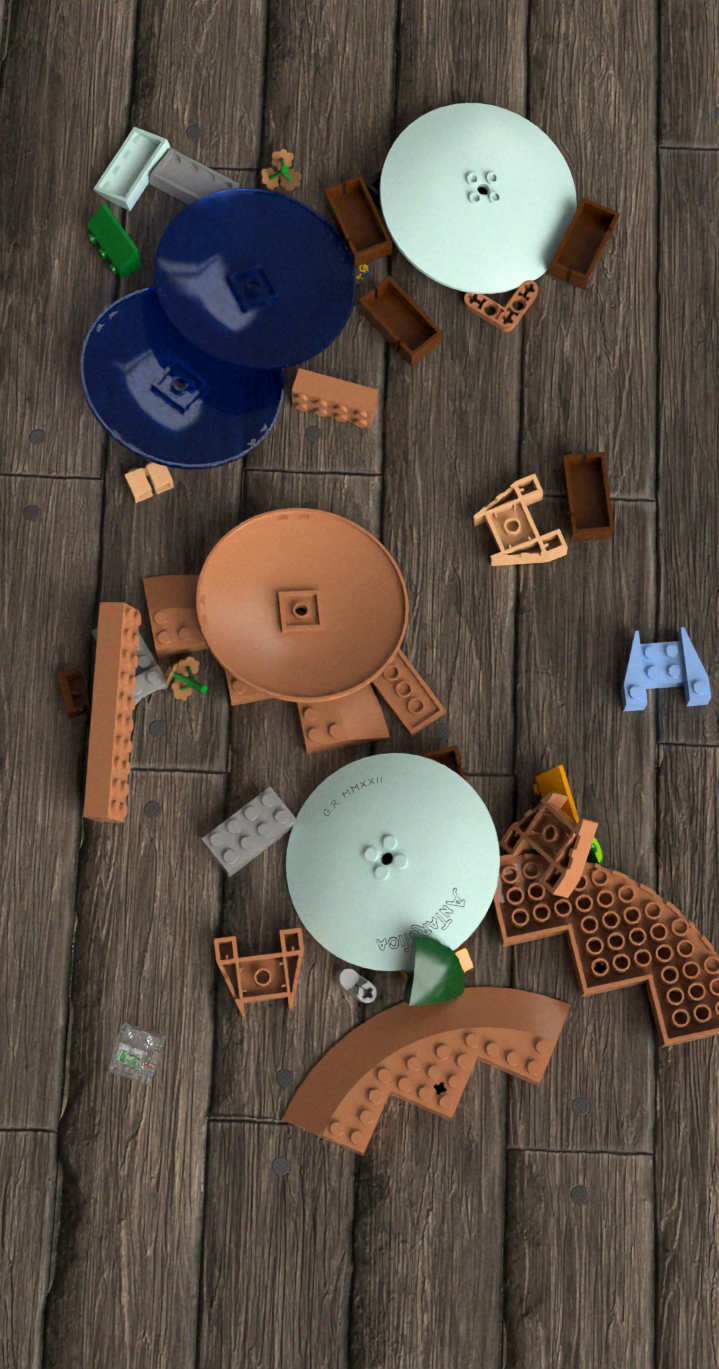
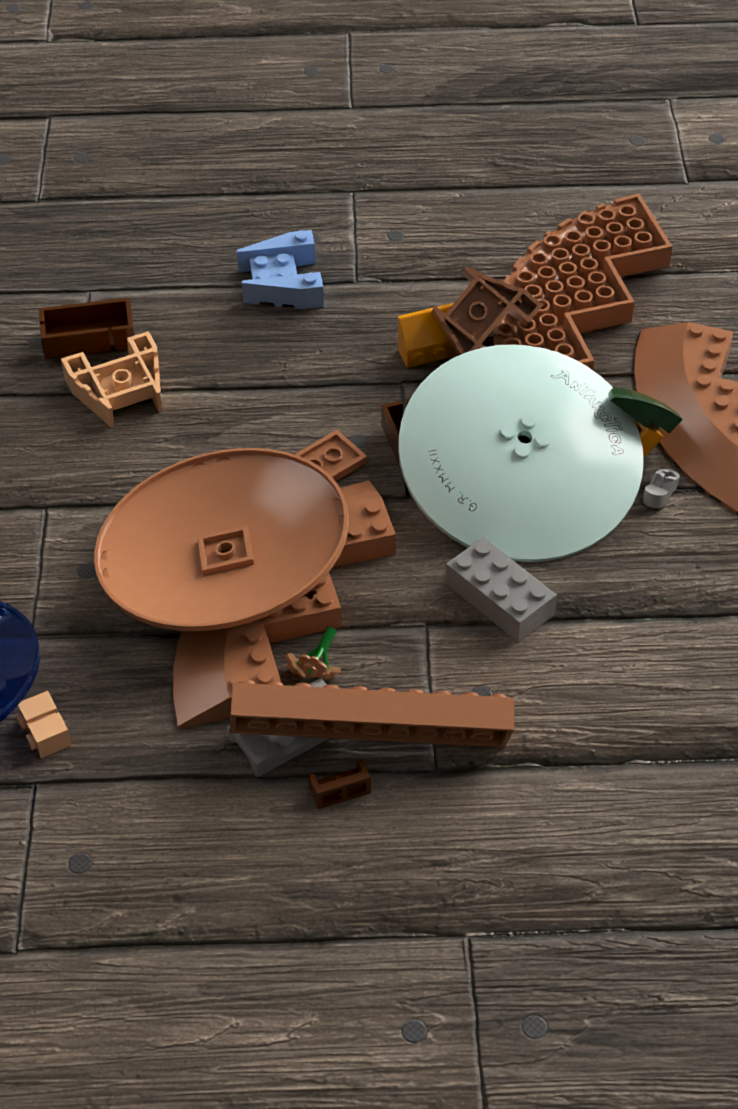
camera: 90 degrees left, 25 degrees down
(261, 976) = (672, 560): nougat wedge -> none

